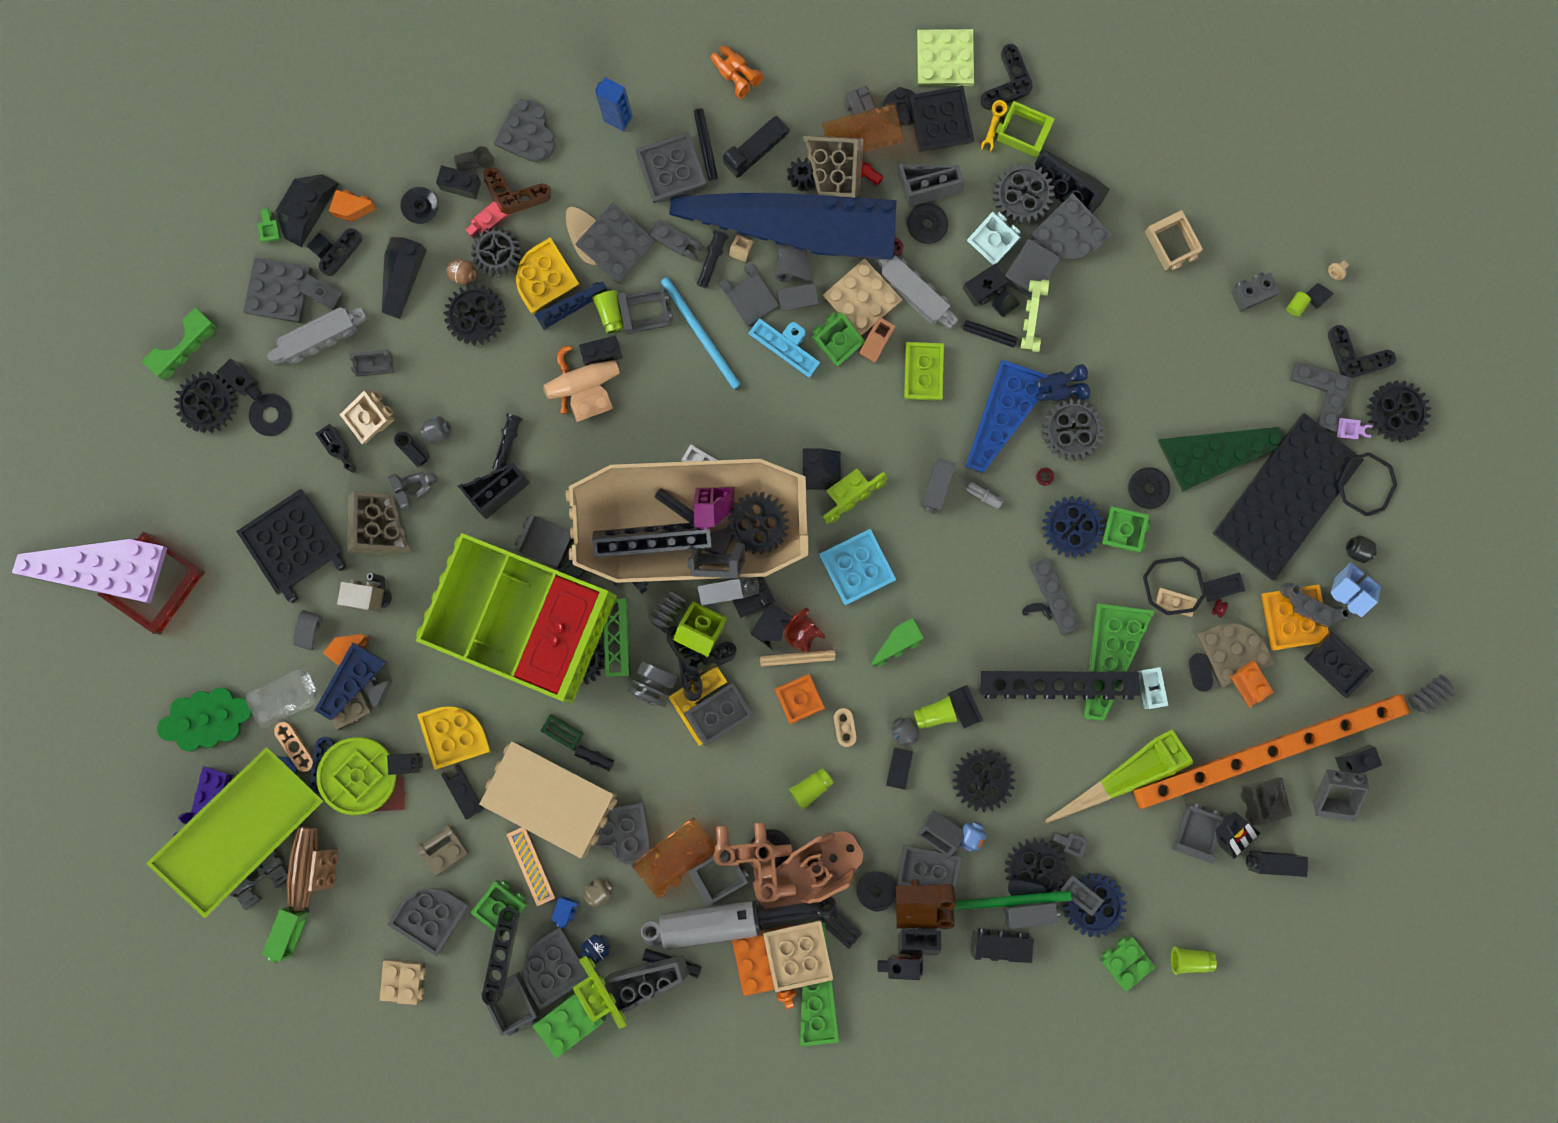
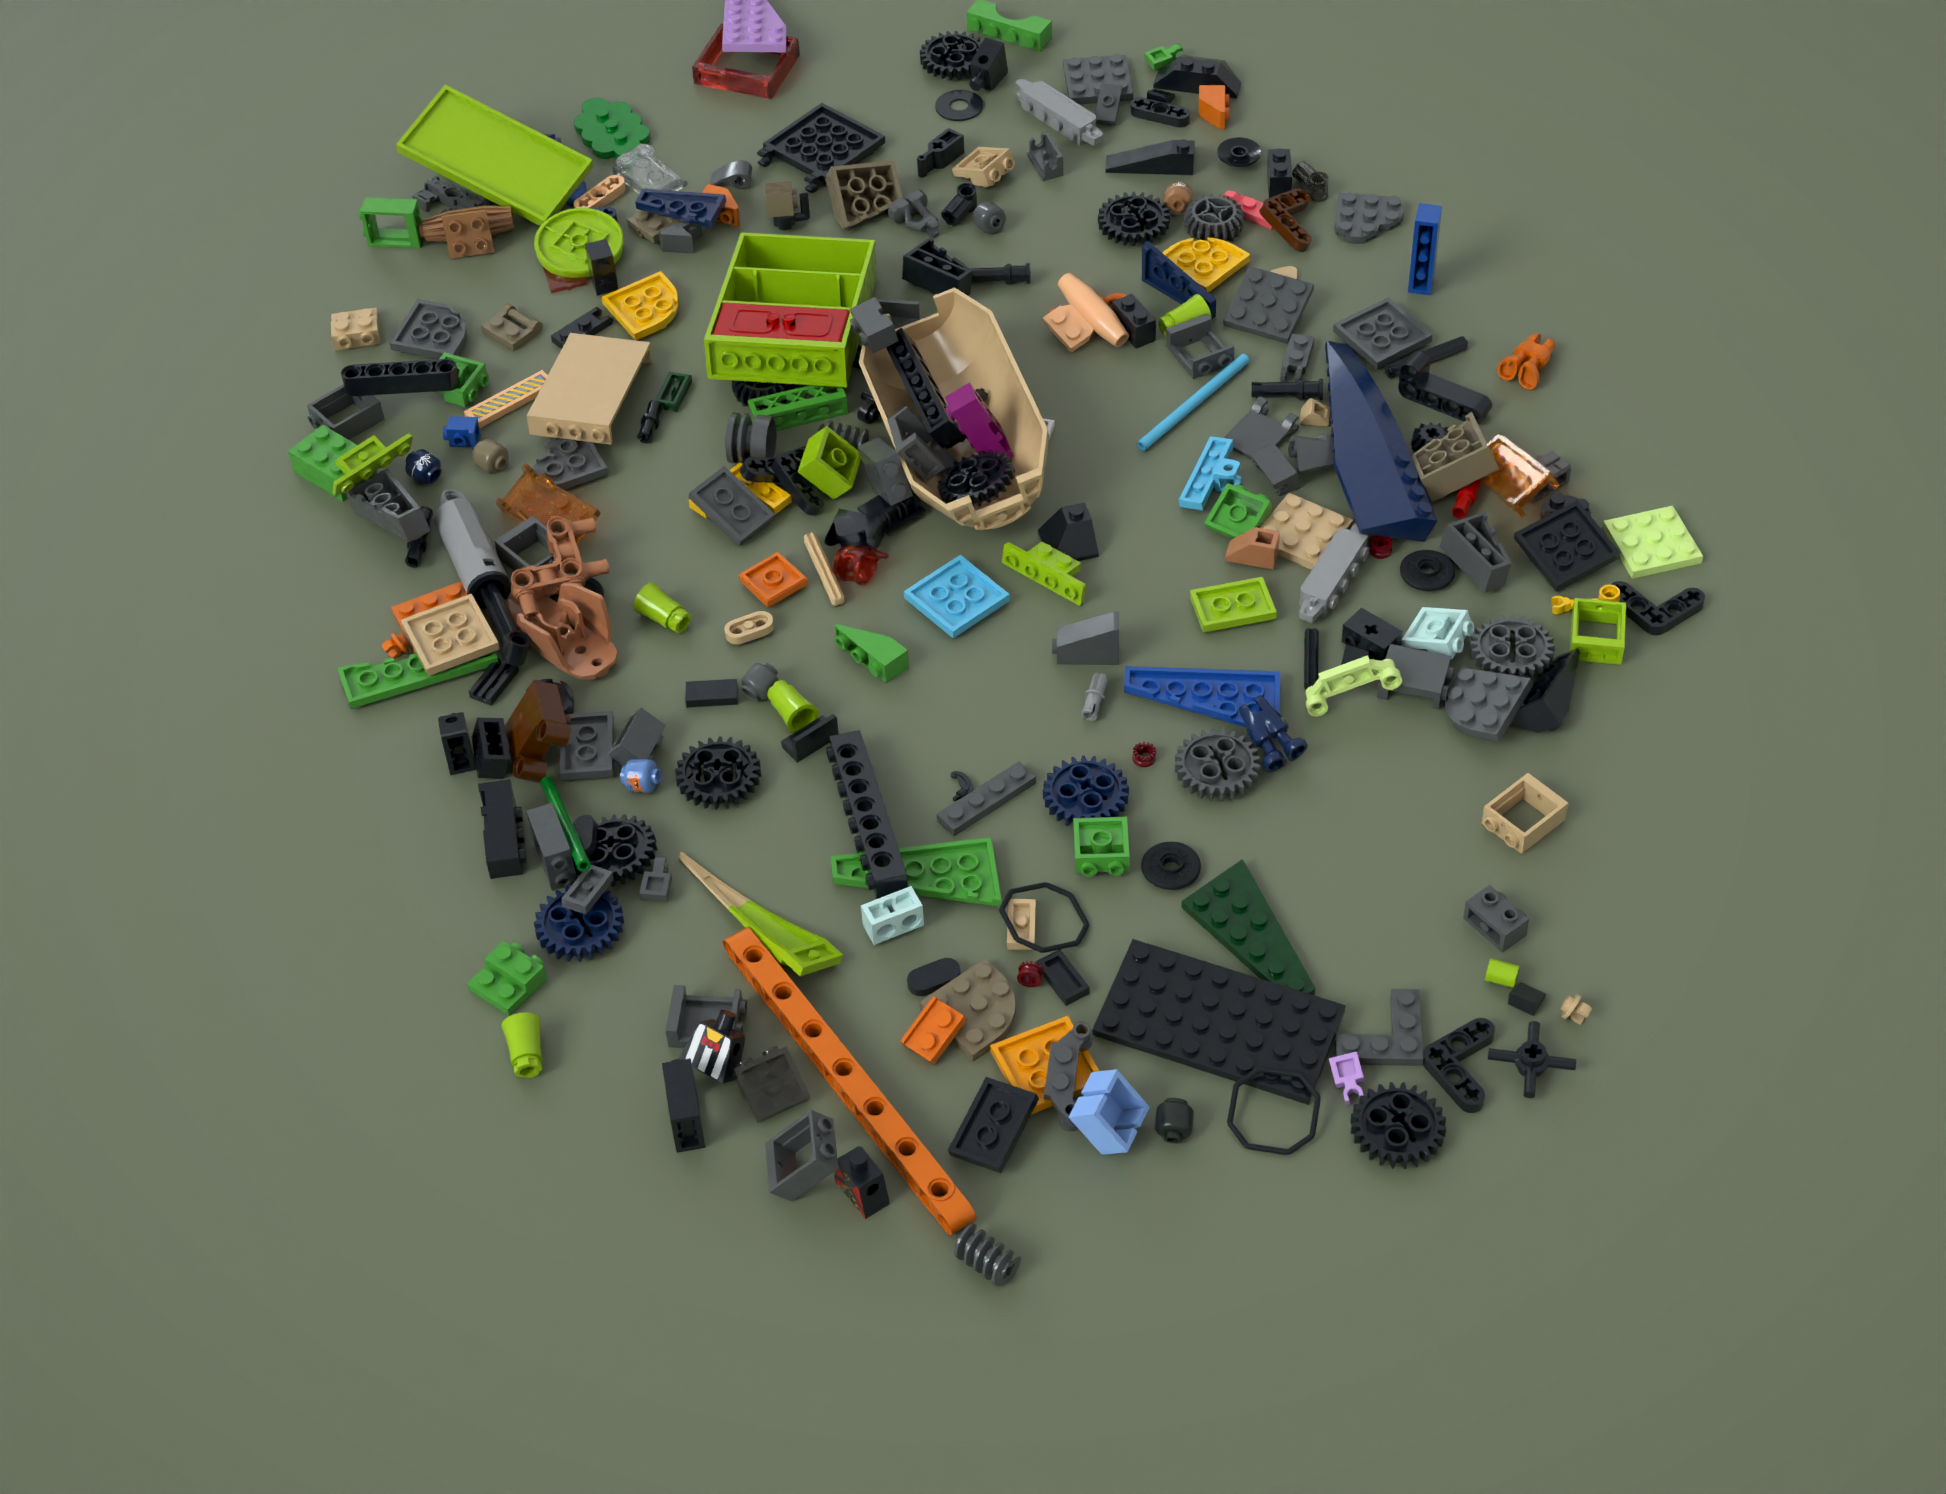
camera: 75 degrees right, 35 degrees down
(552, 968) = (392, 428): dark grey plate -> none
(588, 563) = (874, 328): none -> dark grey brick
(1371, 306) = (1531, 1059): none -> black bar

